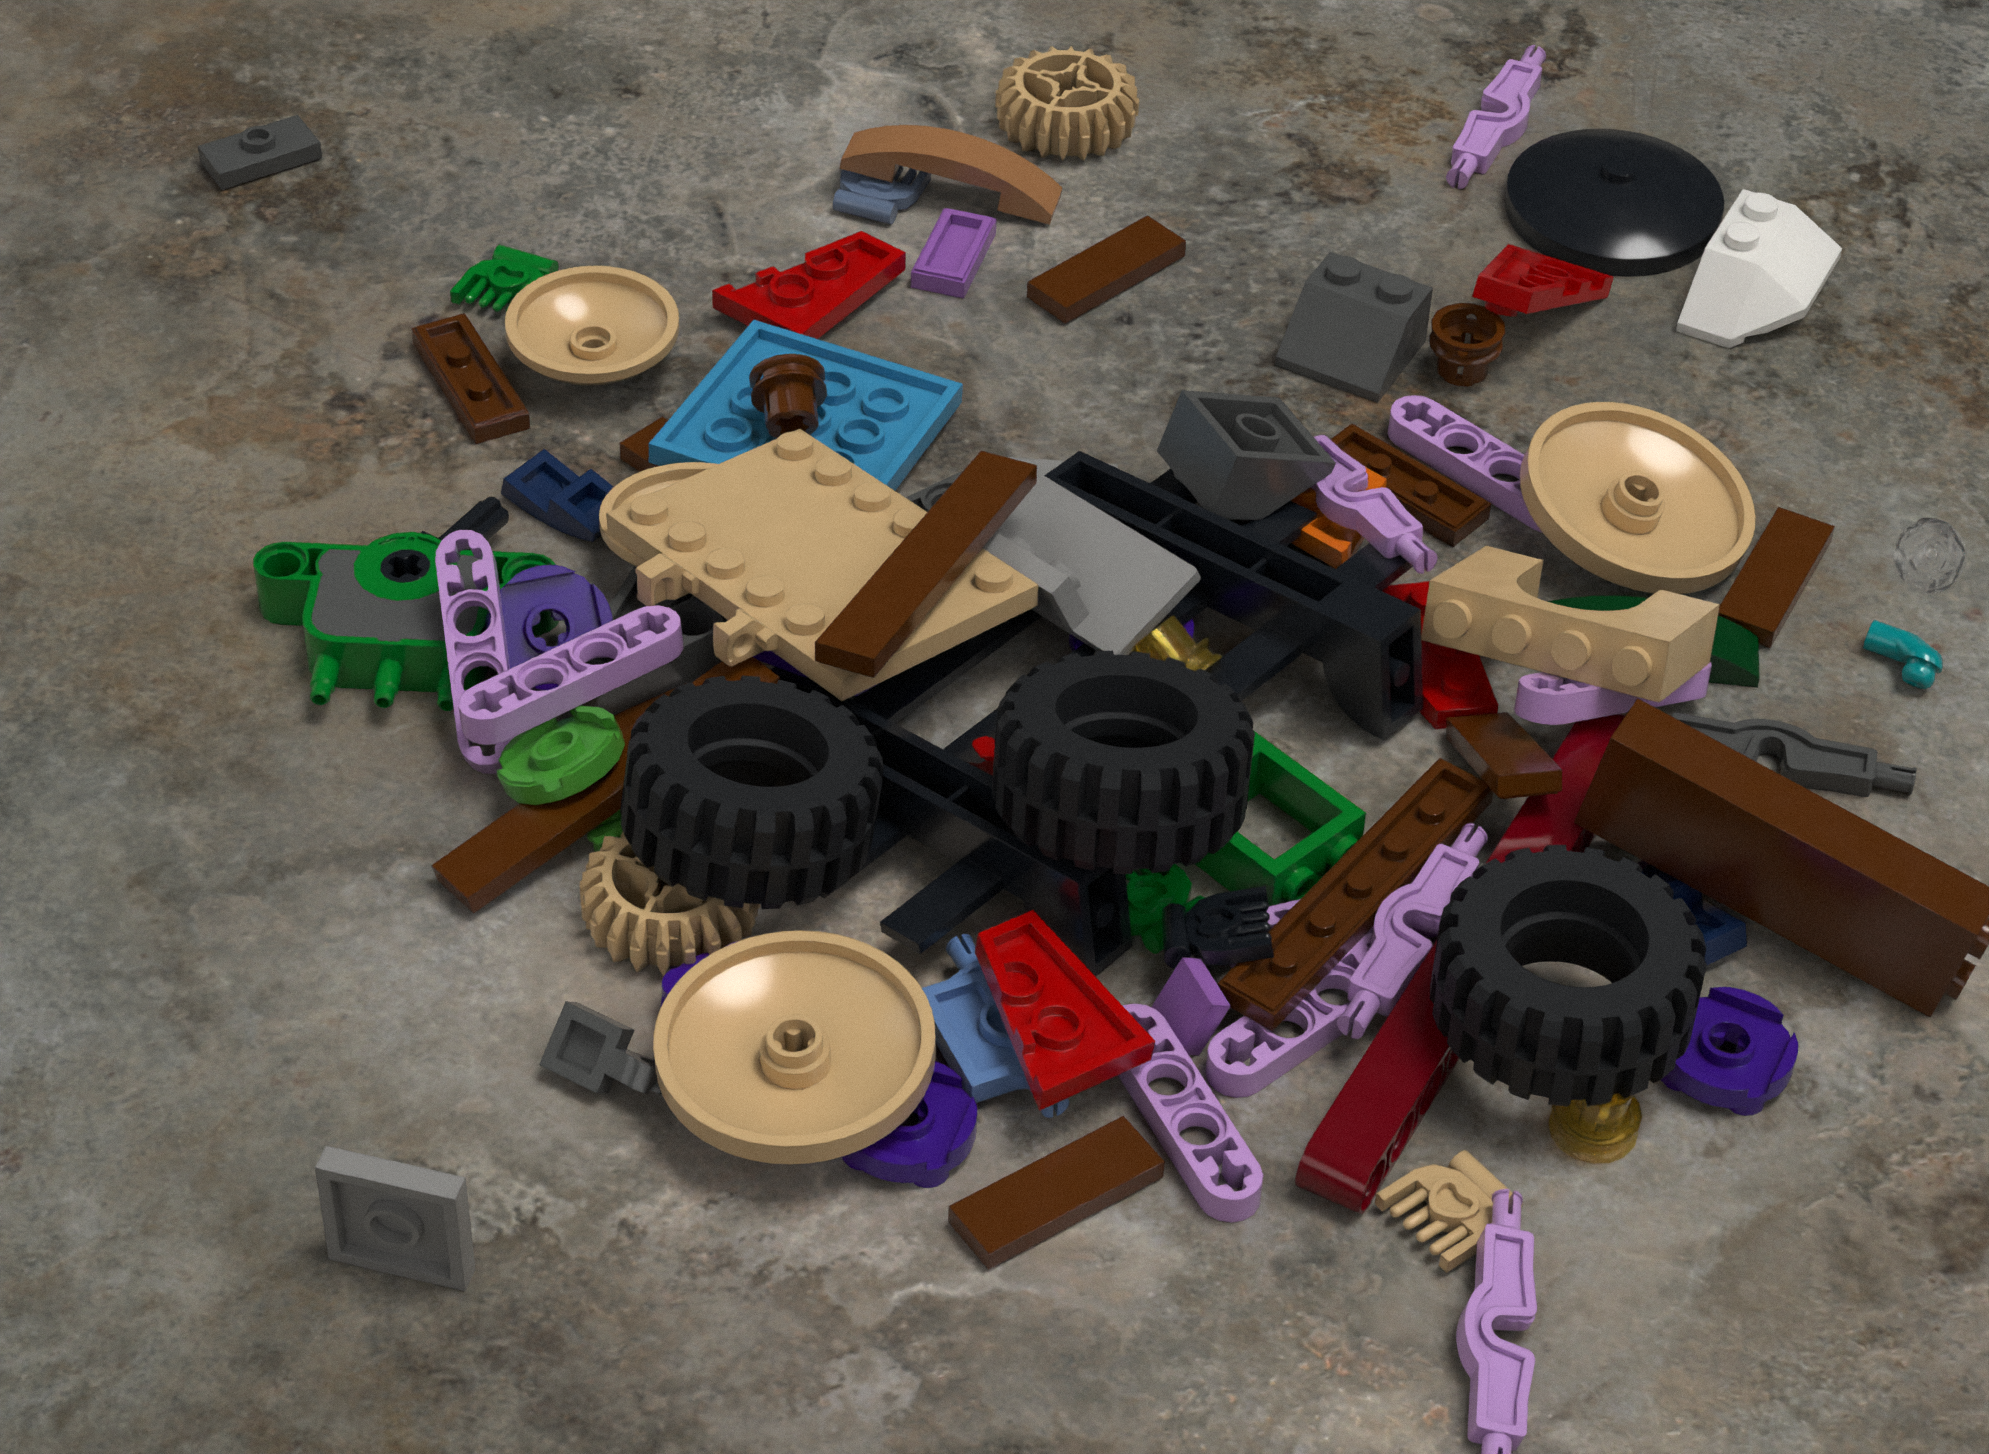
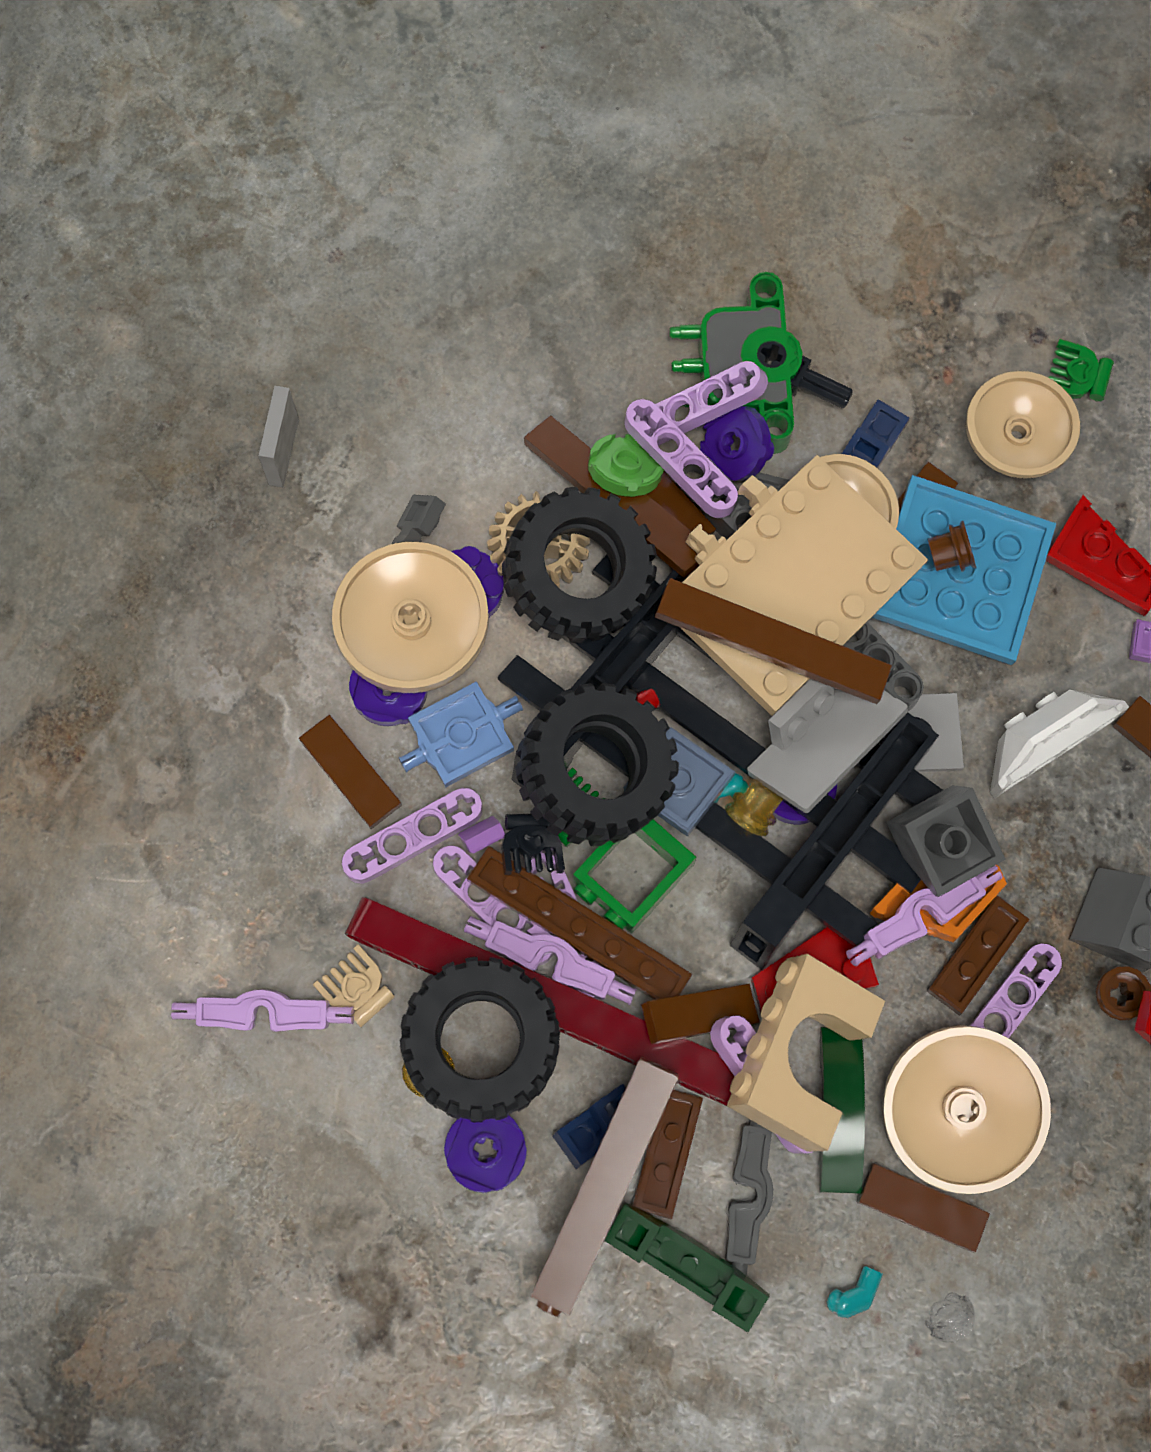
camera: 85 degrees right, 30 degrees up
(470, 378) = (976, 367): reddish brown tile -> none
(1057, 1011) = (451, 756): red wing -> none
(1087, 367) = (1049, 733): none -> white wedge
(1918, 777) = (688, 1264): none -> dark green slope

